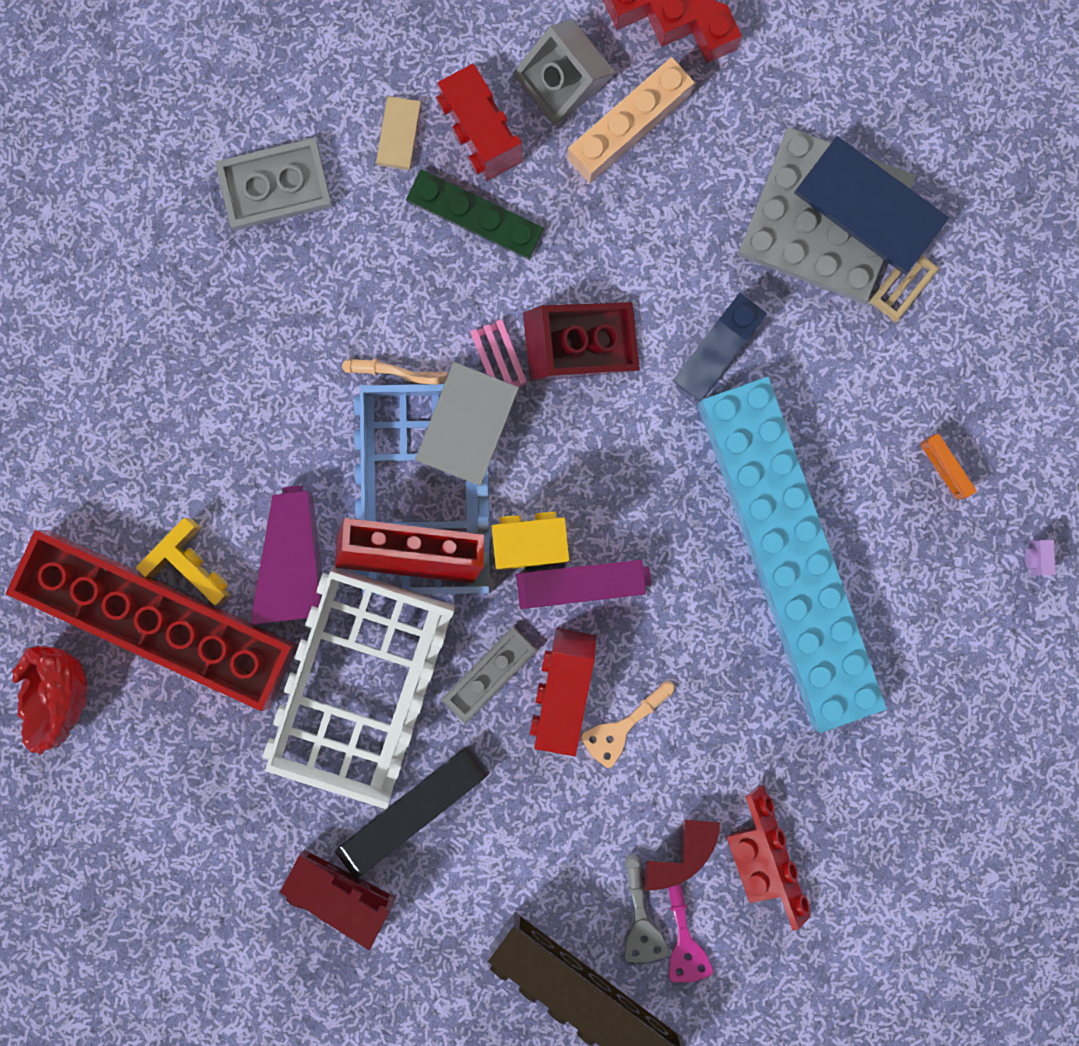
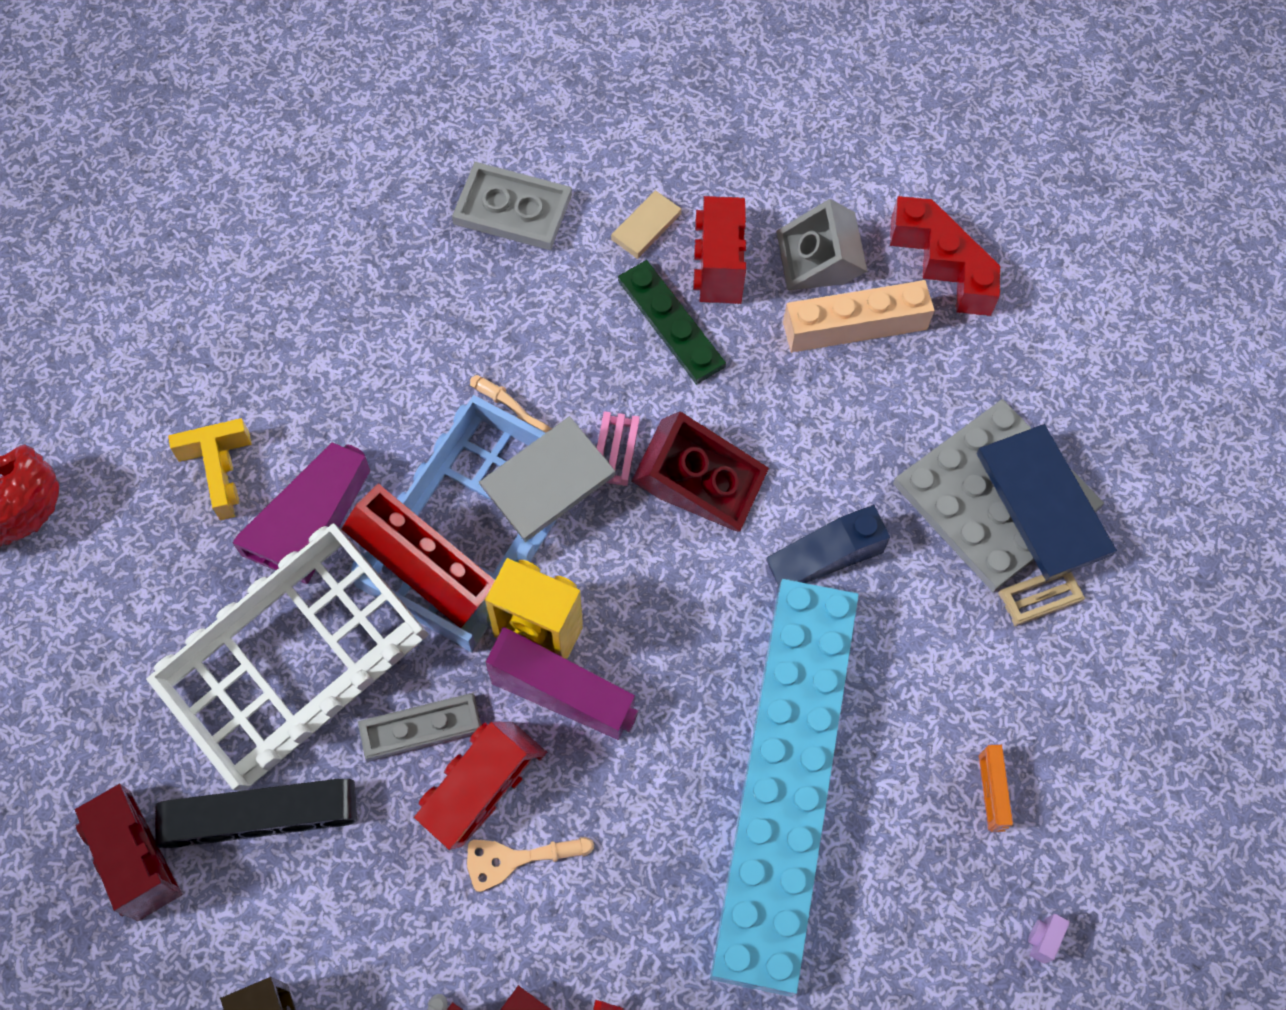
camera: 25 degrees right, 20 degrees down
(152, 619) = (149, 491): red brick -> none

